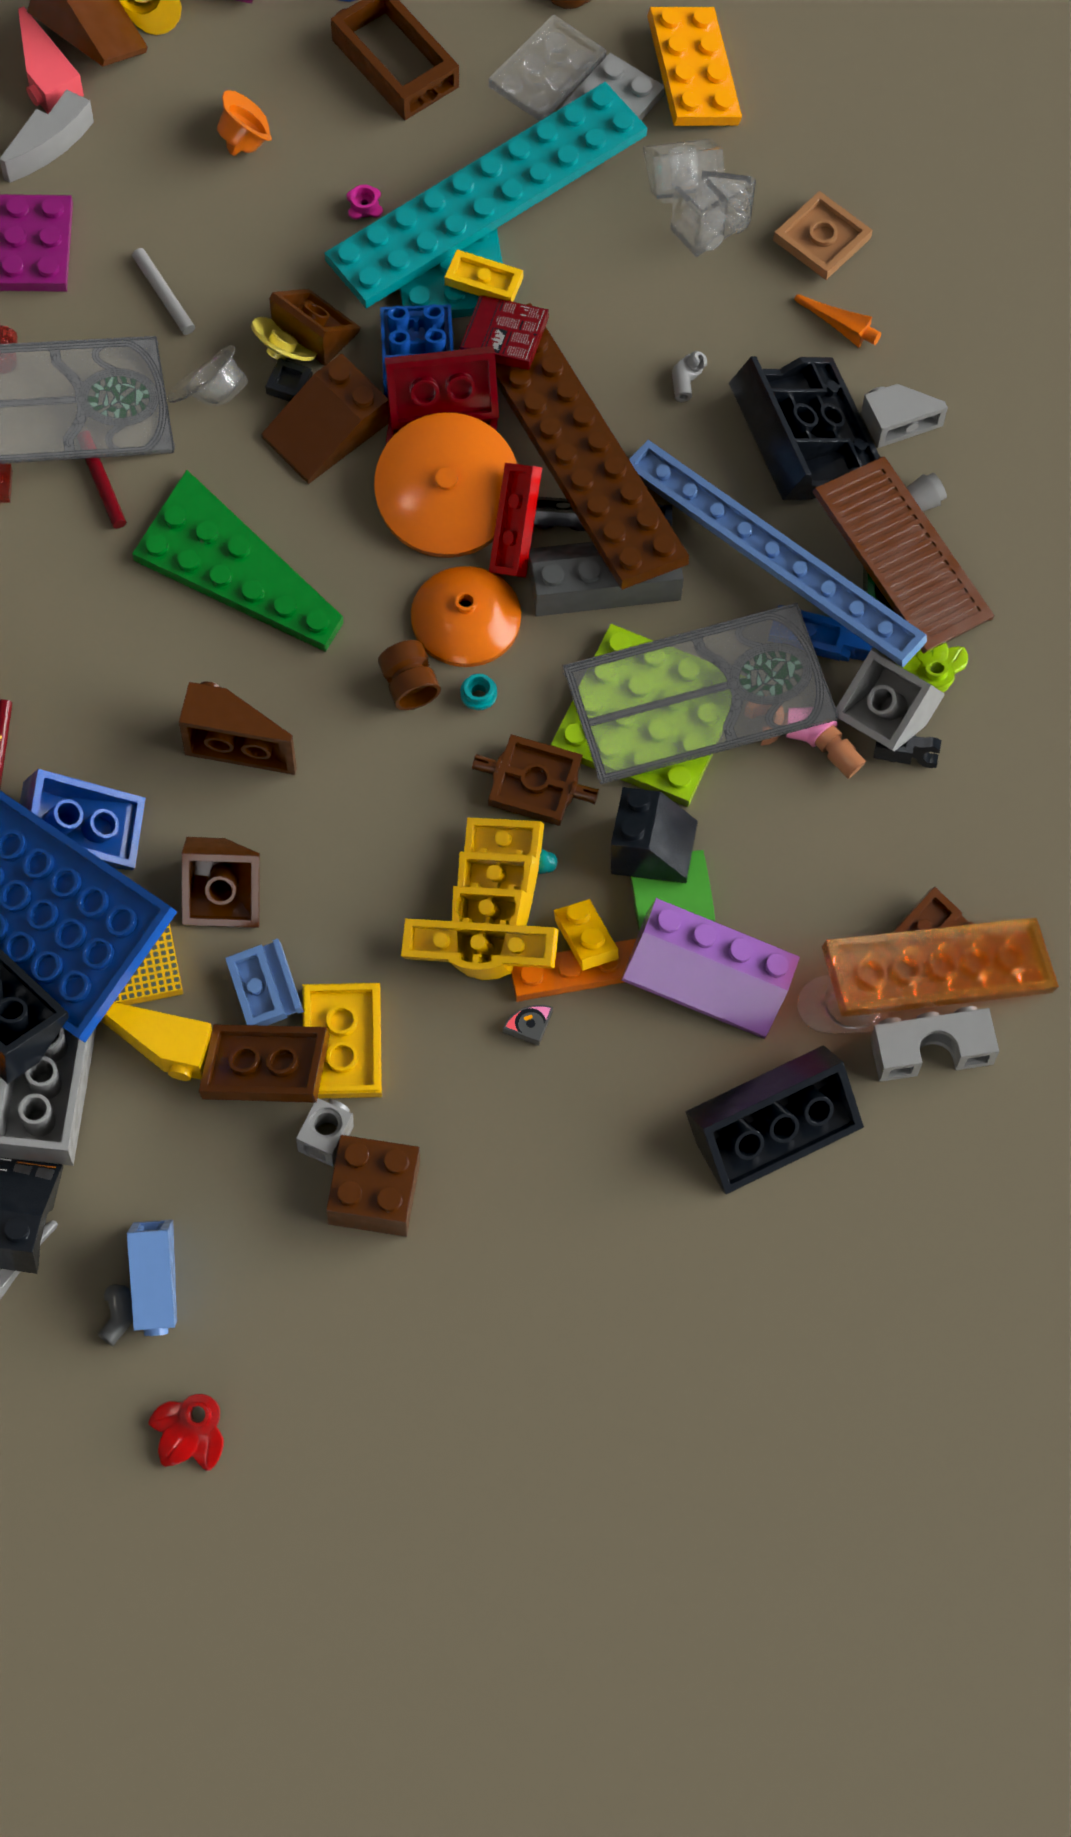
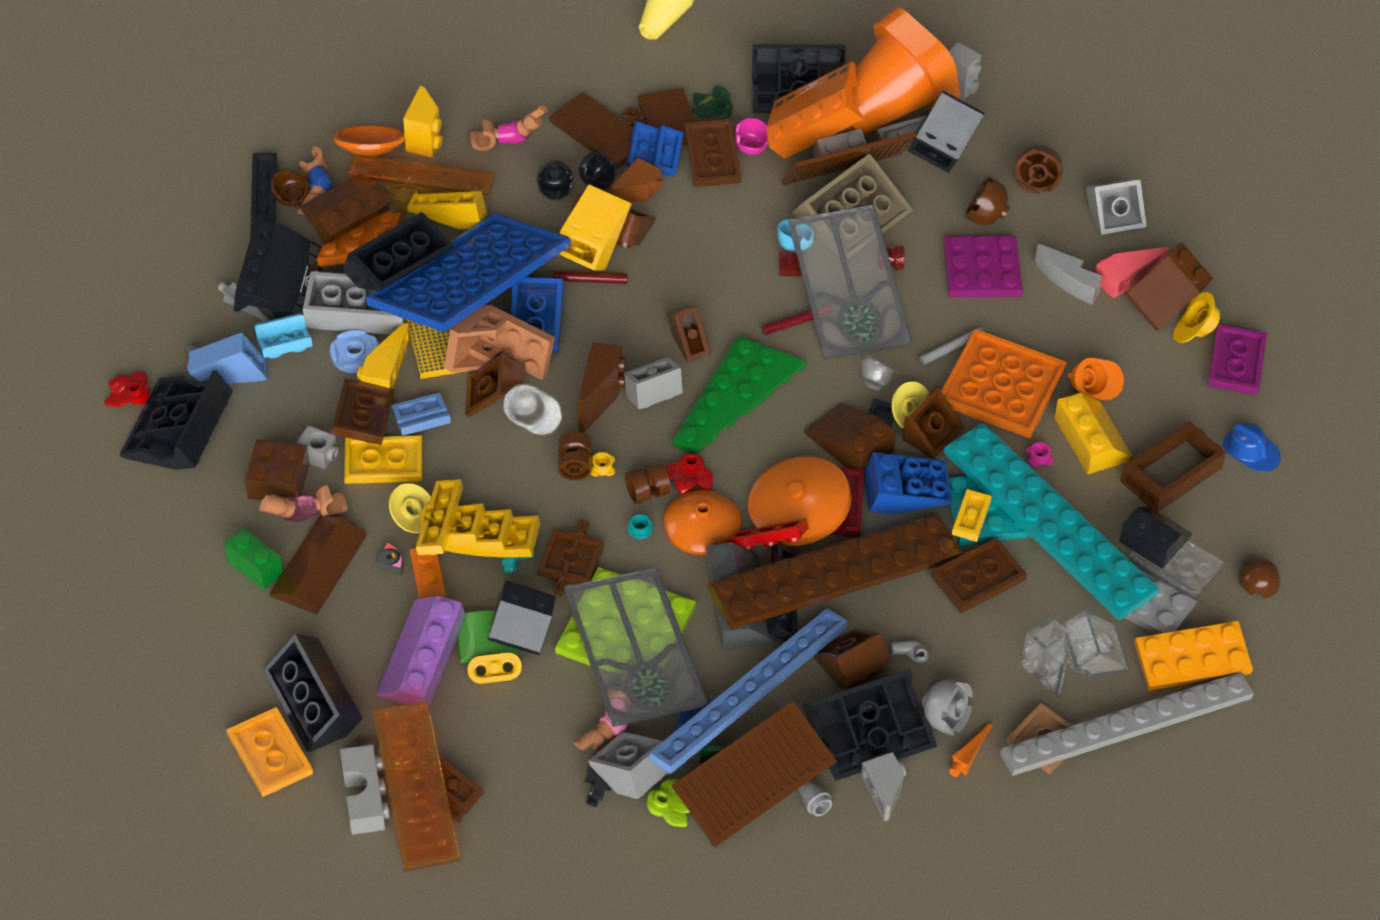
camera: 90 degrees right, 15 degrees down
(101, 1192) = (282, 336): none -> medium azure bracket
(122, 616) = (688, 332): none -> reddish brown slope
(127, 1111) = (350, 340): none -> light blue tile
(148, 845) = (494, 332): none -> nougat bracket
(228, 658) = (653, 383): none -> light grey brick
(239, 233) = (1003, 383): none -> orange plate
(262, 1348) = (177, 422): none -> black piece
(267, 825) = (532, 409): none -> clear piece
(334, 140) = (1091, 433): none -> yellow slope
(343, 769) = (574, 456): none -> reddish brown wheel
(366, 729) = (604, 459): none -> yellow plate
(390, 625) = (689, 472): none -> red plate
(438, 1139) = (302, 508): none -> nougat piece
(442, 383) = (867, 483): dark red plate -> none
(447, 991) = (408, 497): none -> light yellow dish
(509, 328) = (925, 527): dark red tile -> none
(520, 76) = (1153, 535): none -> black slope
(535, 1126) = (319, 563): none -> reddish brown slope
(538, 1211) = (253, 558): none -> green brick
(570, 285) = (978, 575): none -> reddish brown plate
(586, 934) = (451, 583): yellow plate -> none
(704, 434) = (854, 657): none -> reddish brown slope
(729, 882) = (494, 668): none -> yellow plate
(784, 332) = (948, 706): none -> light grey cylinder
(802, 147) = (1126, 723): none -> light grey plate
(873, 1173) = (269, 752): none -> light orange plate

